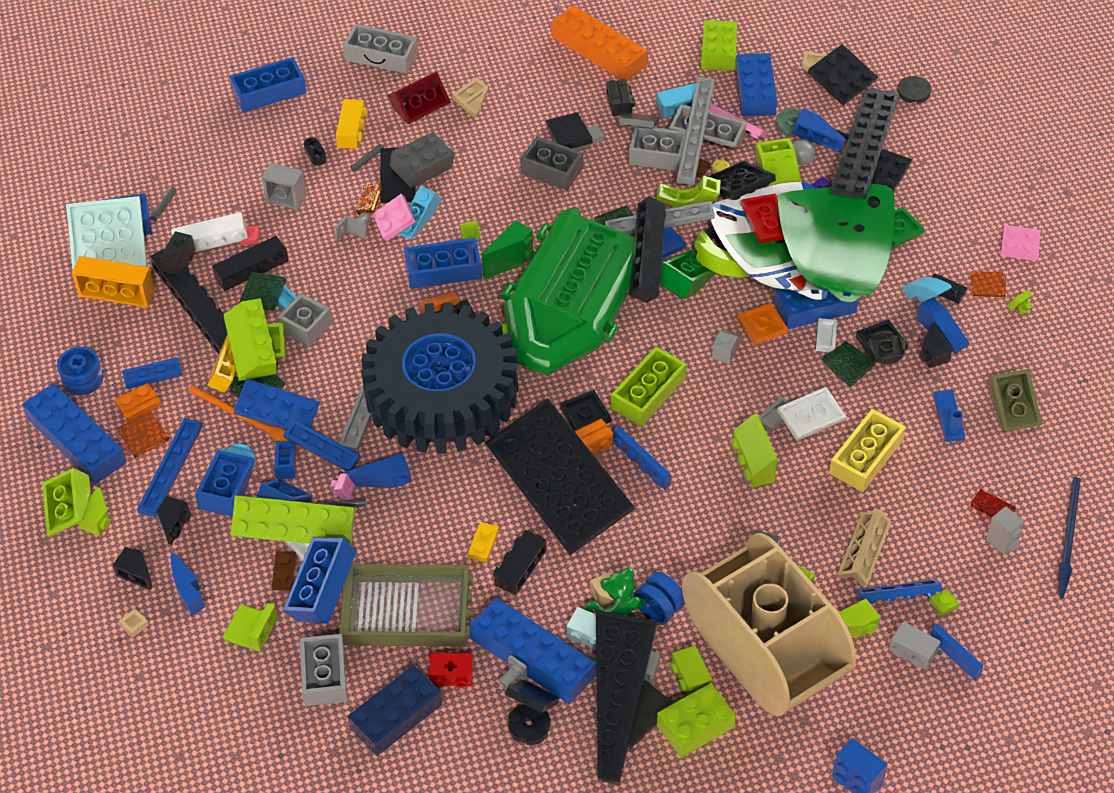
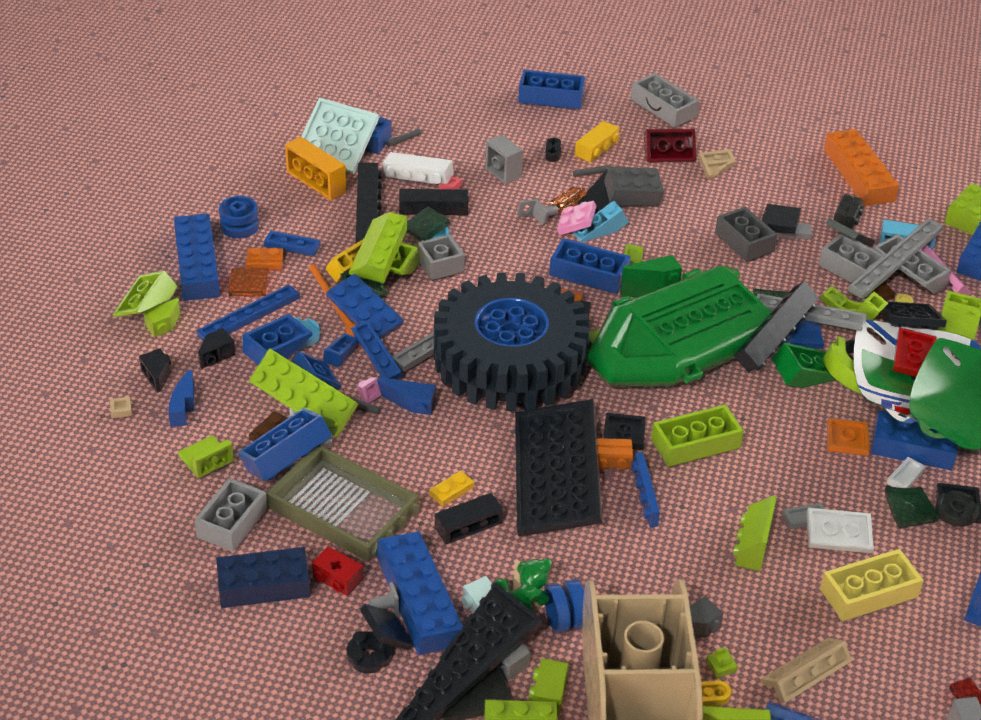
camera: 30 degrees right, 10 degrees down
(177, 253) = (376, 166): pearl dark grey brick -> none
(726, 346) = (798, 437): light grey slope -> none

